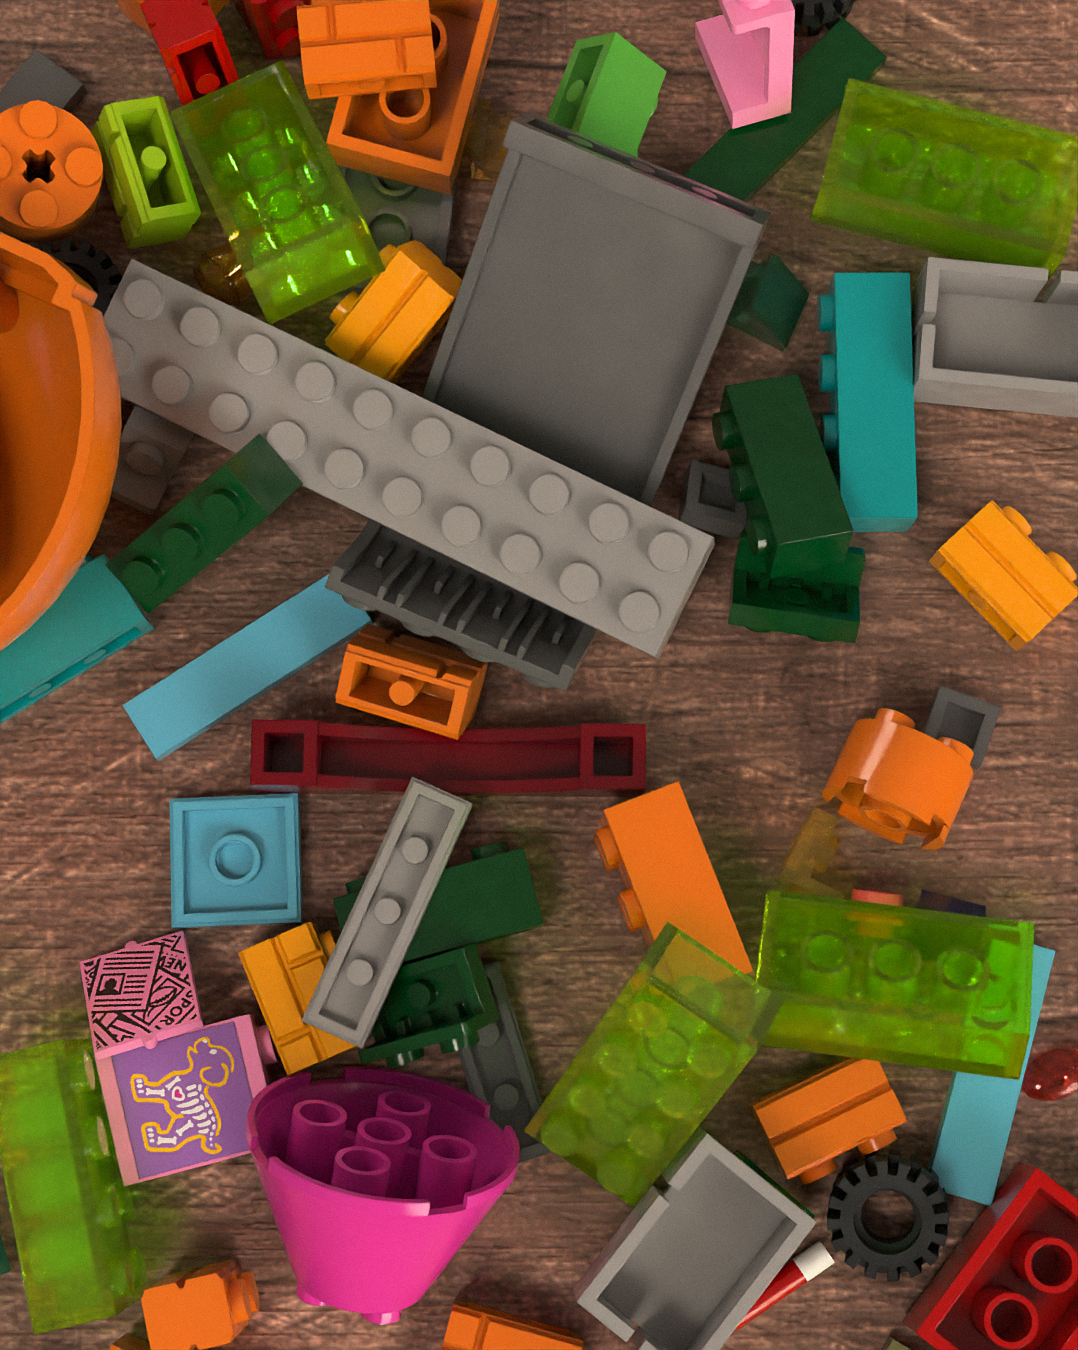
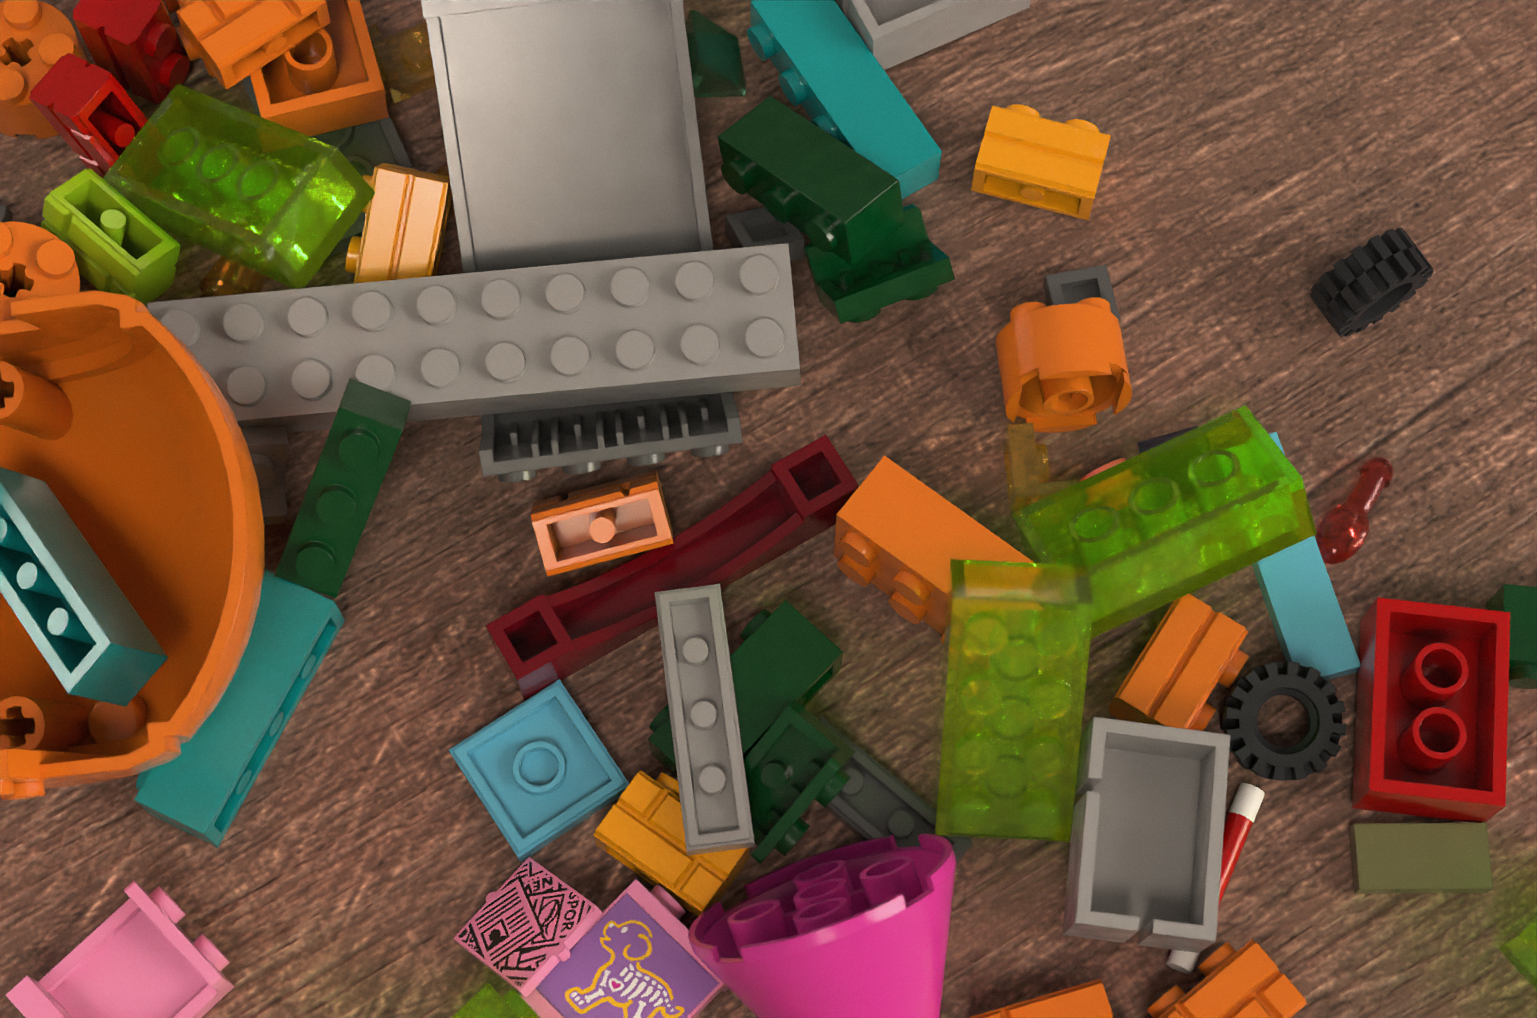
camera: 30 degrees left, 10 degrees down
(243, 667) = (447, 601): medium azure tile -> none

